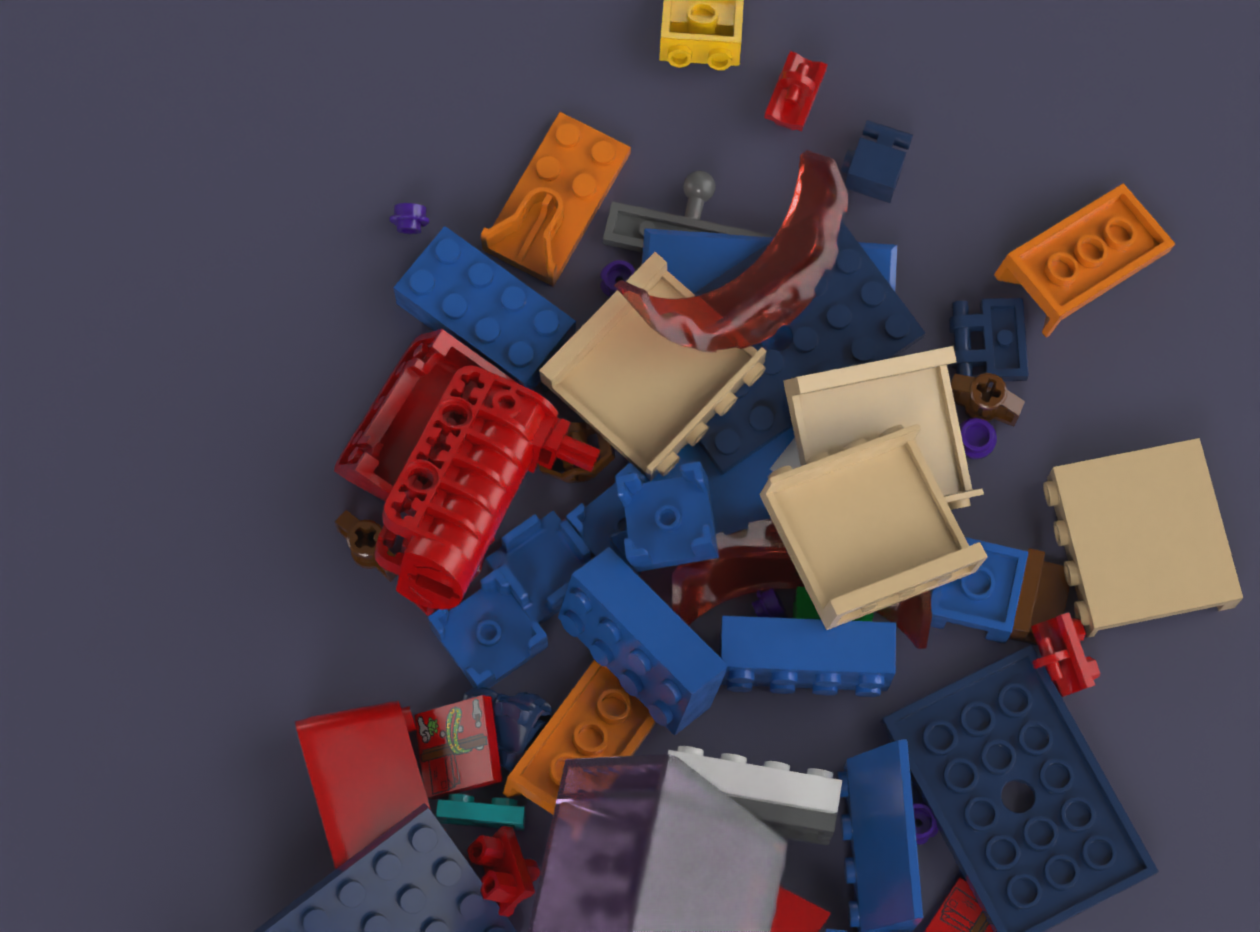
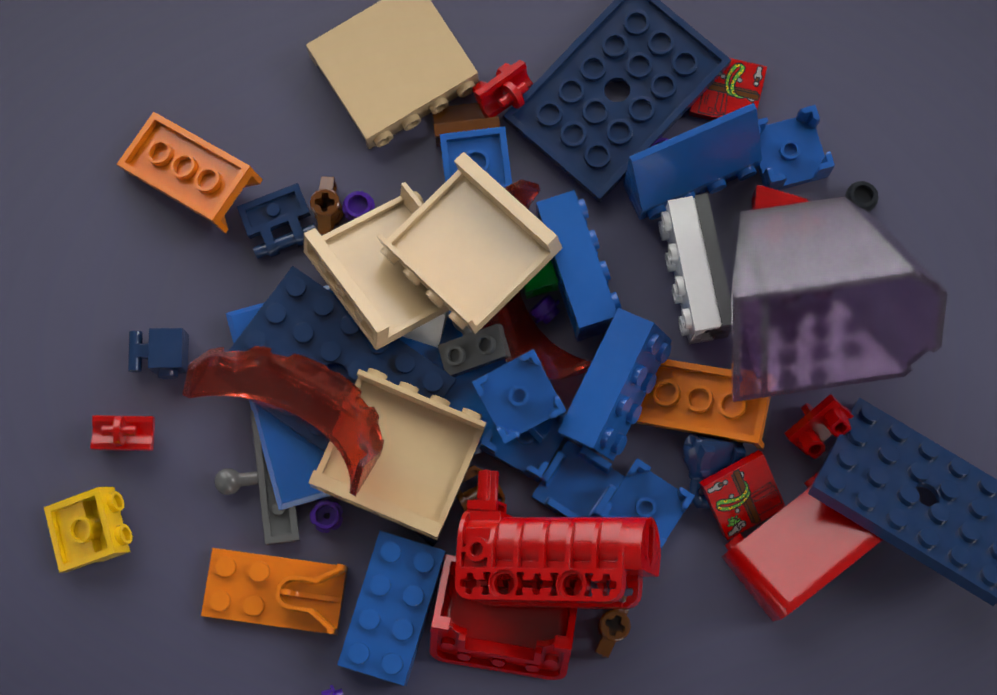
camera: 105 degrees left, 5 degrees up
(463, 811) = (778, 448): teal plate -> none
(744, 509) = (474, 350): none -> dark grey plate

